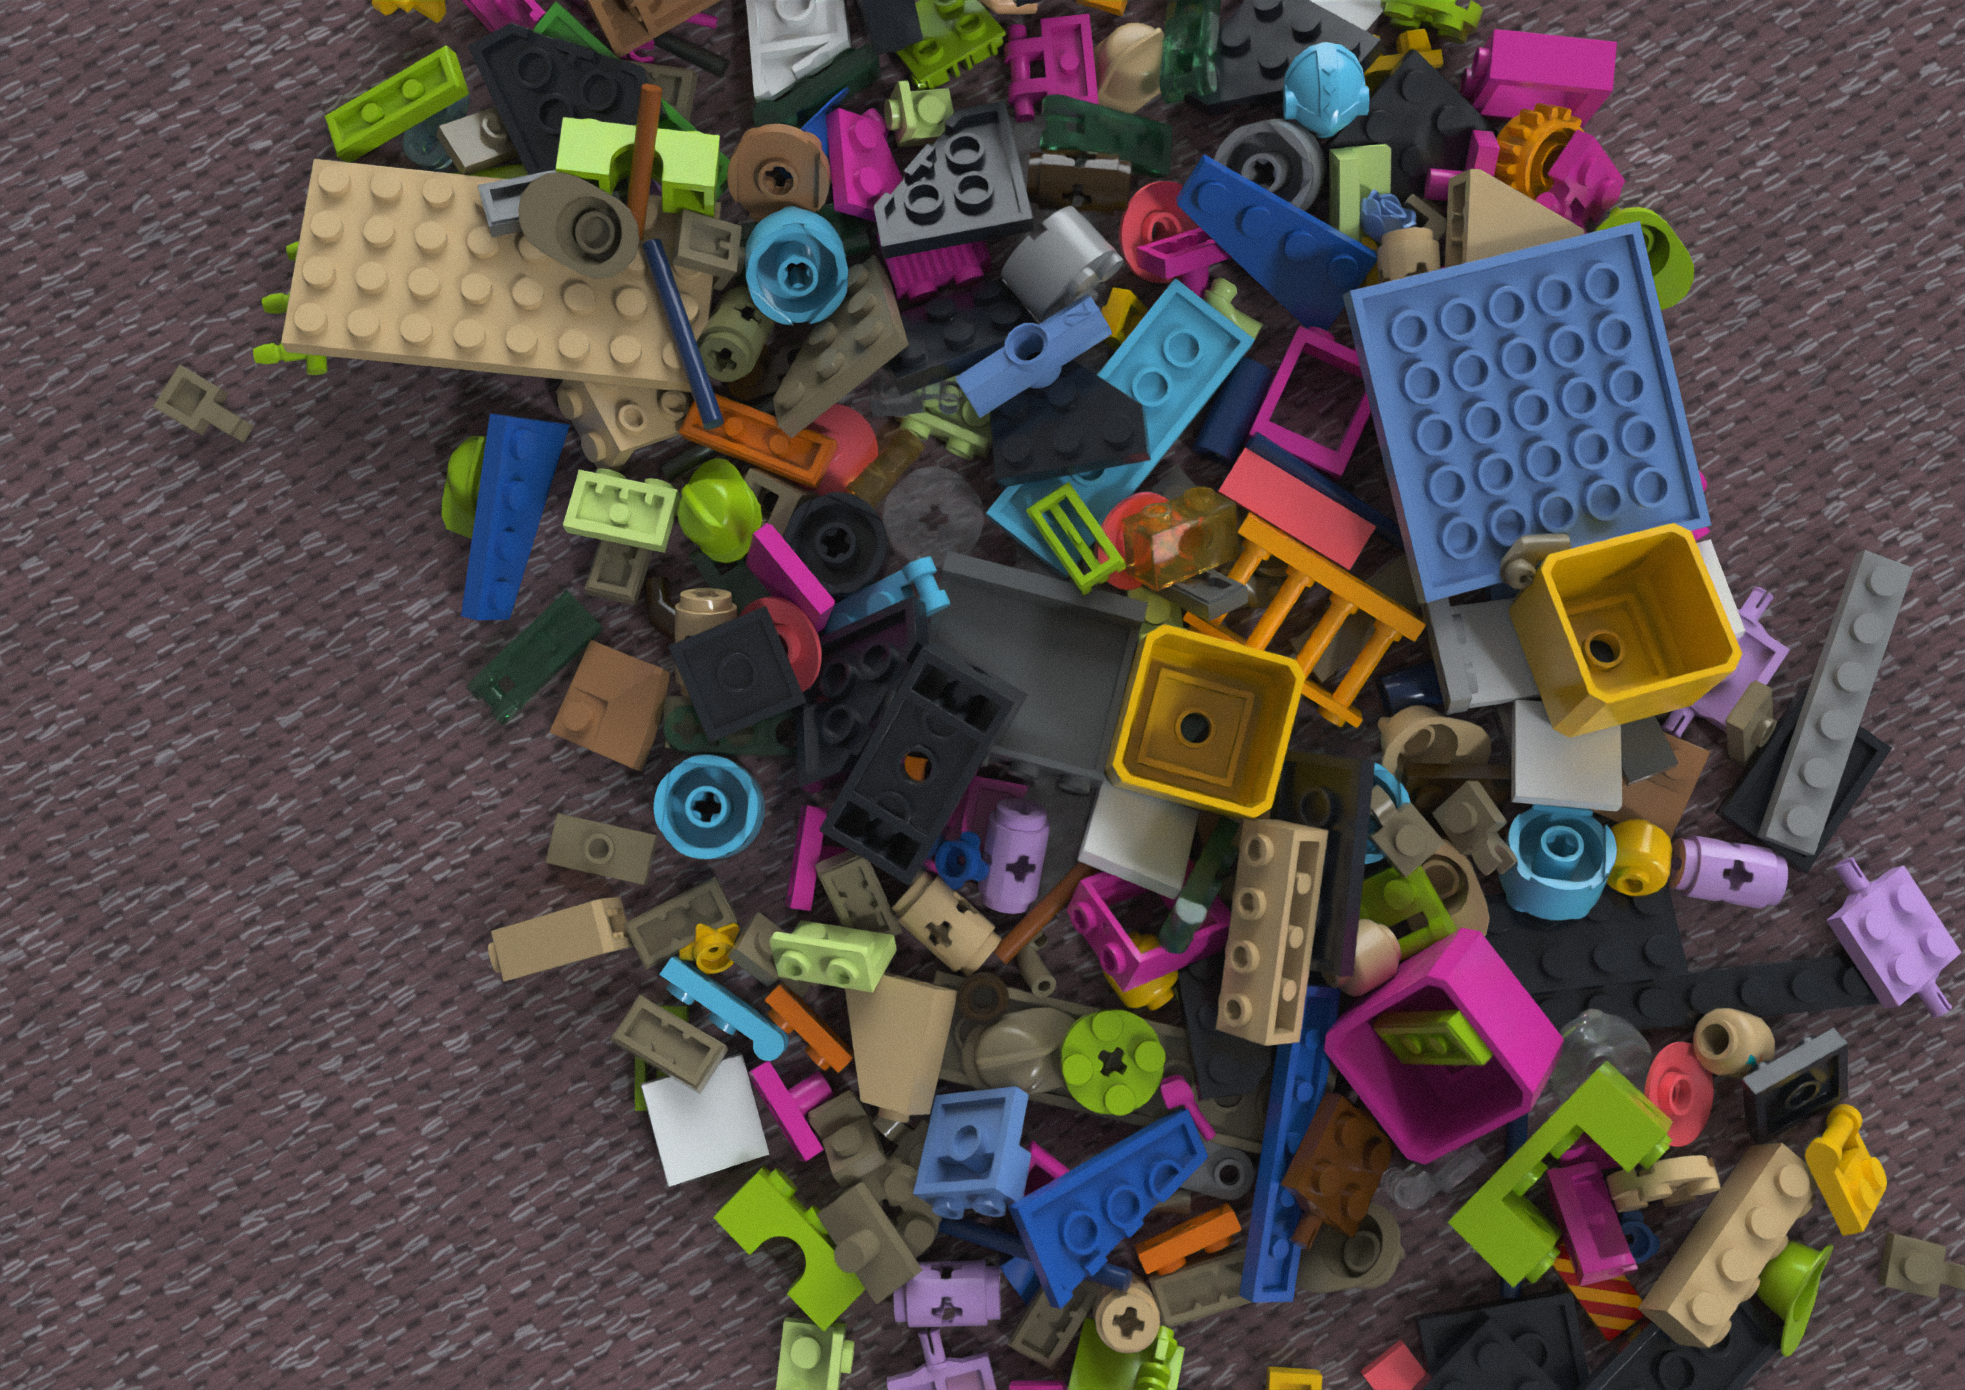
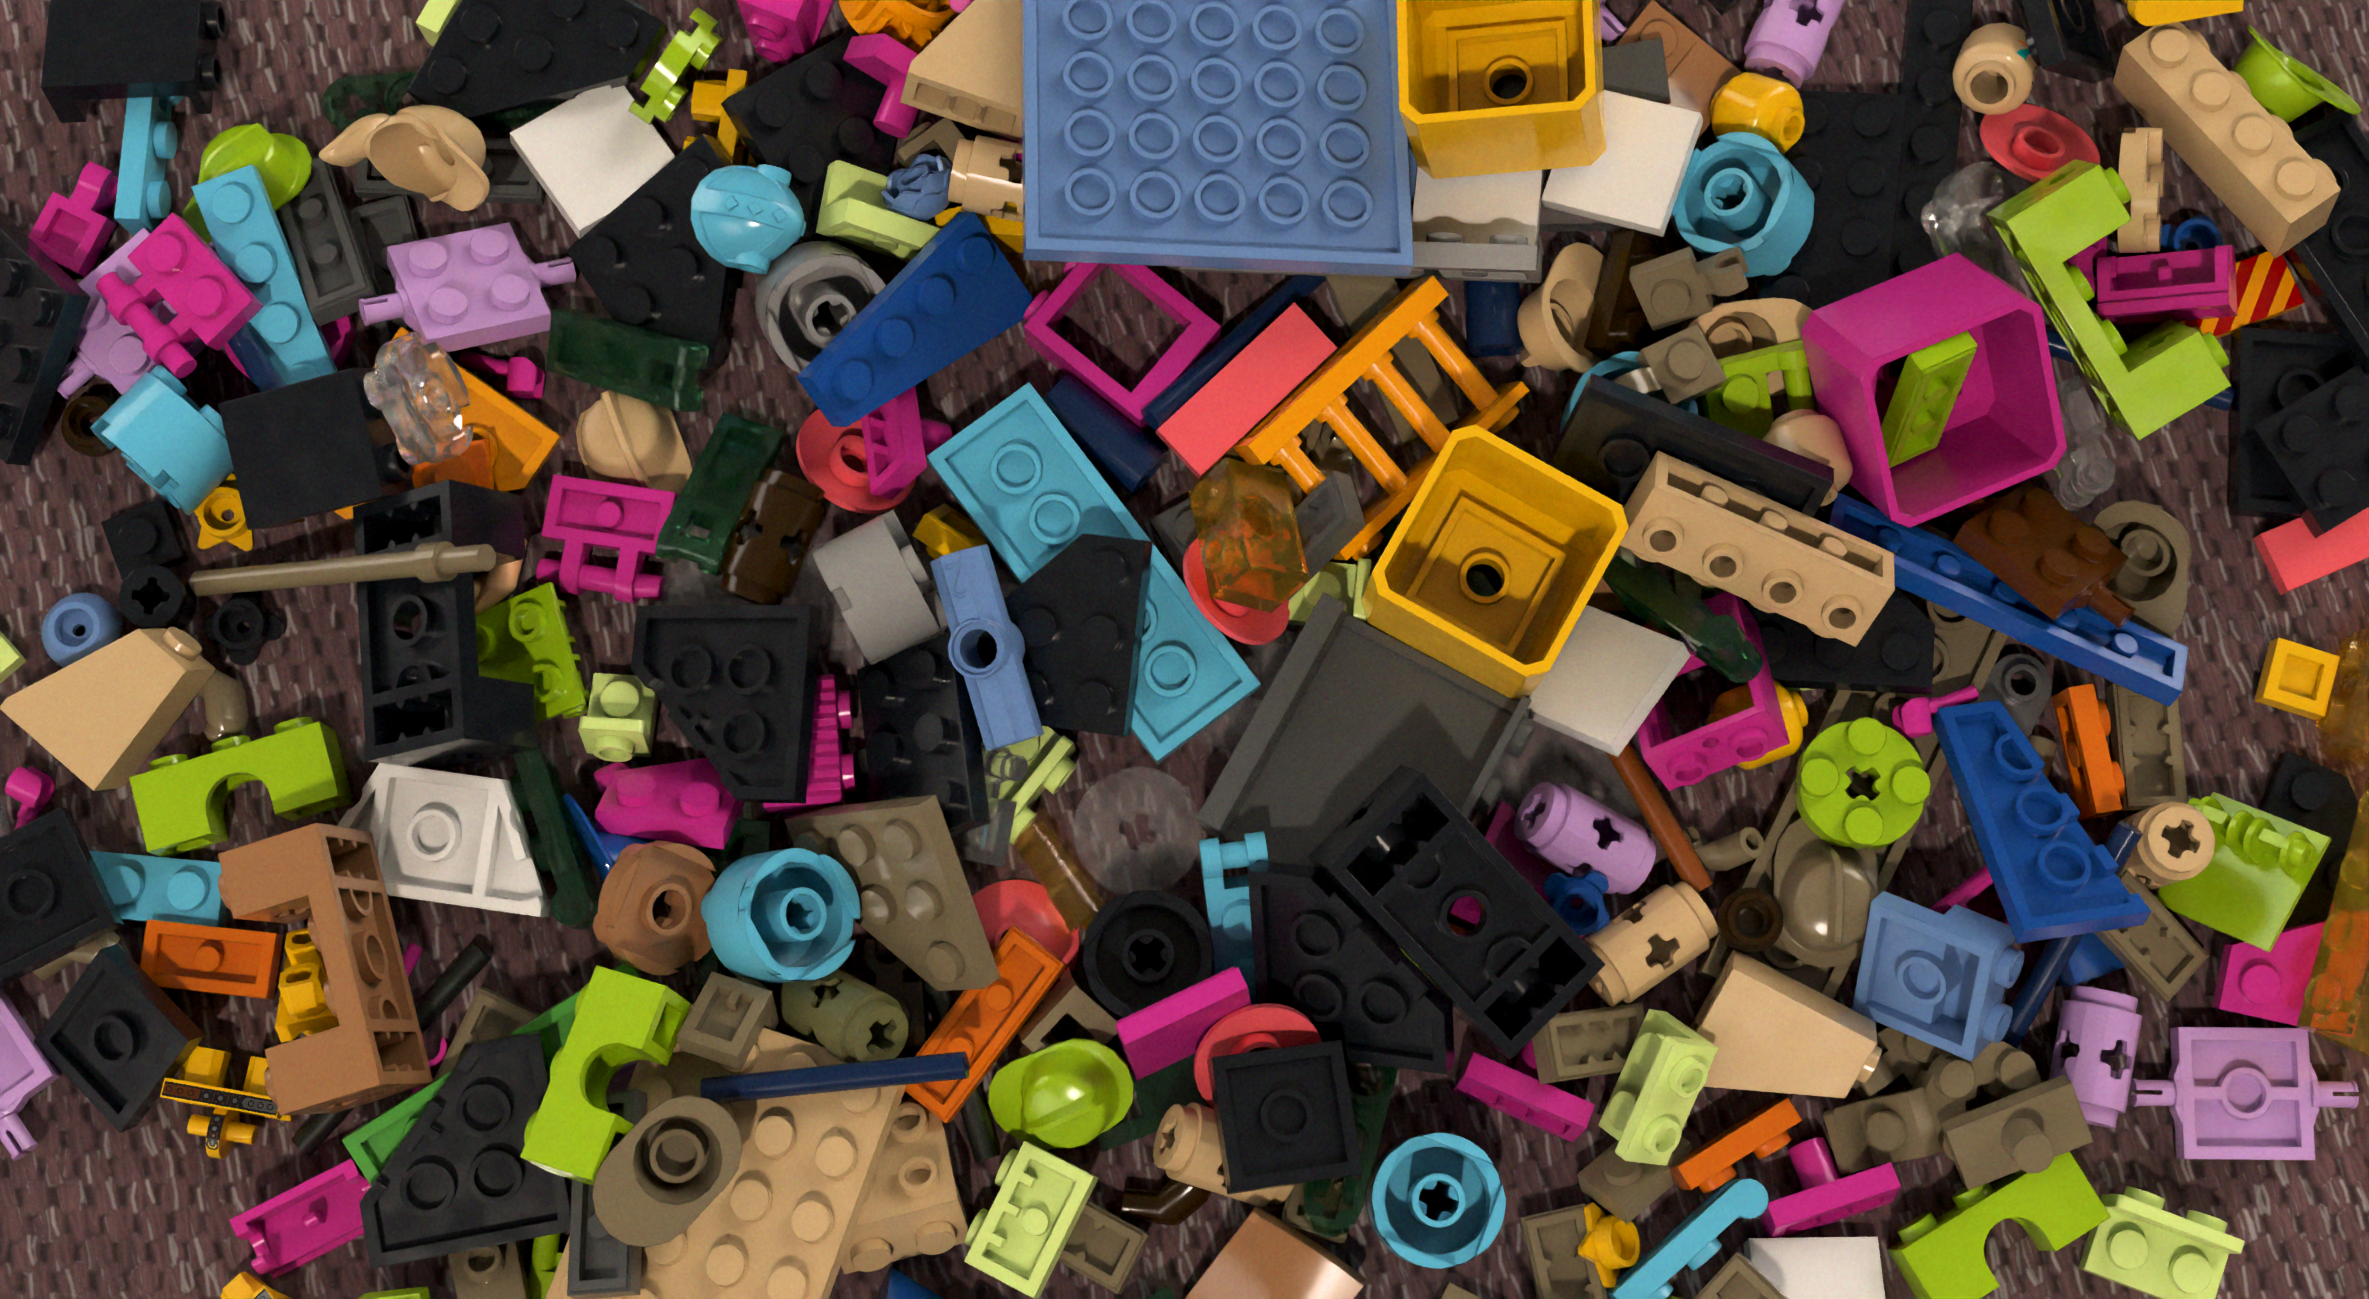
camera: 80 degrees left, 5 degrees down
(644, 153) = (595, 1062): dark orange bar -> none
(1099, 572) = (1274, 639): lime tile -> none
(1220, 298) = (959, 413): yellowish green arm -> none
(1525, 555) = (1393, 146): dark tan arm -> none

